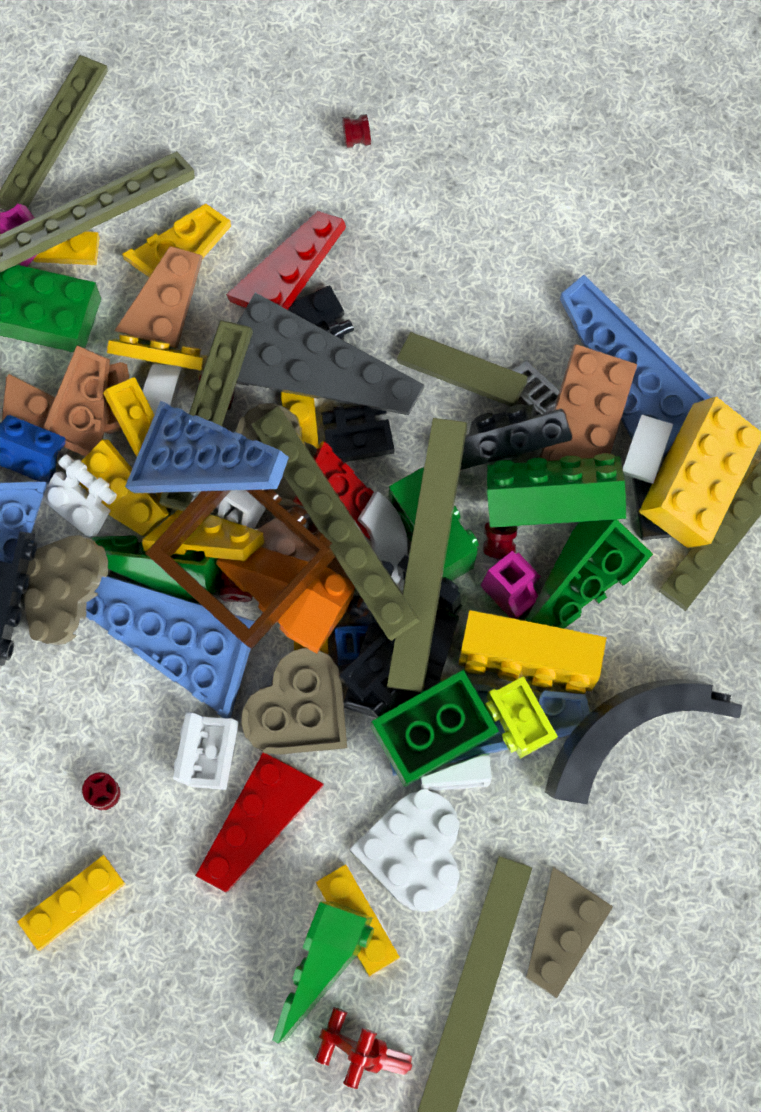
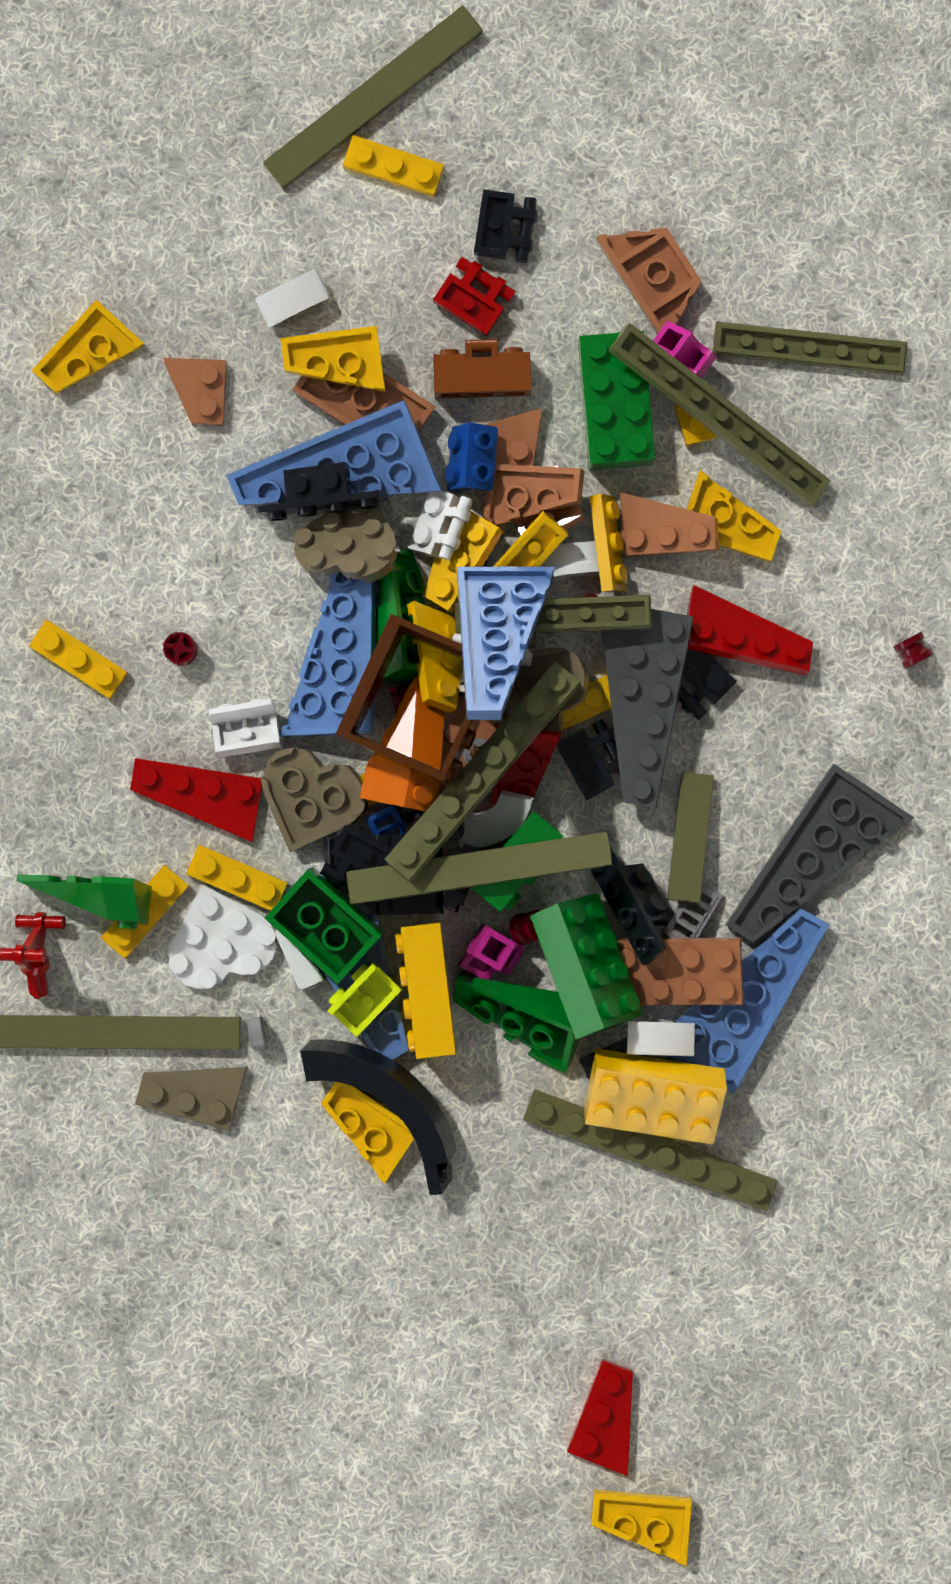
camera: 70 degrees right, 15 degrees up
(355, 812) = (236, 878): none -> yellow plate
(506, 260) = (826, 839): none -> dark grey wing
(522, 842) = (257, 1034): none -> light grey tile
(651, 758) = (370, 1126): none -> yellow wing

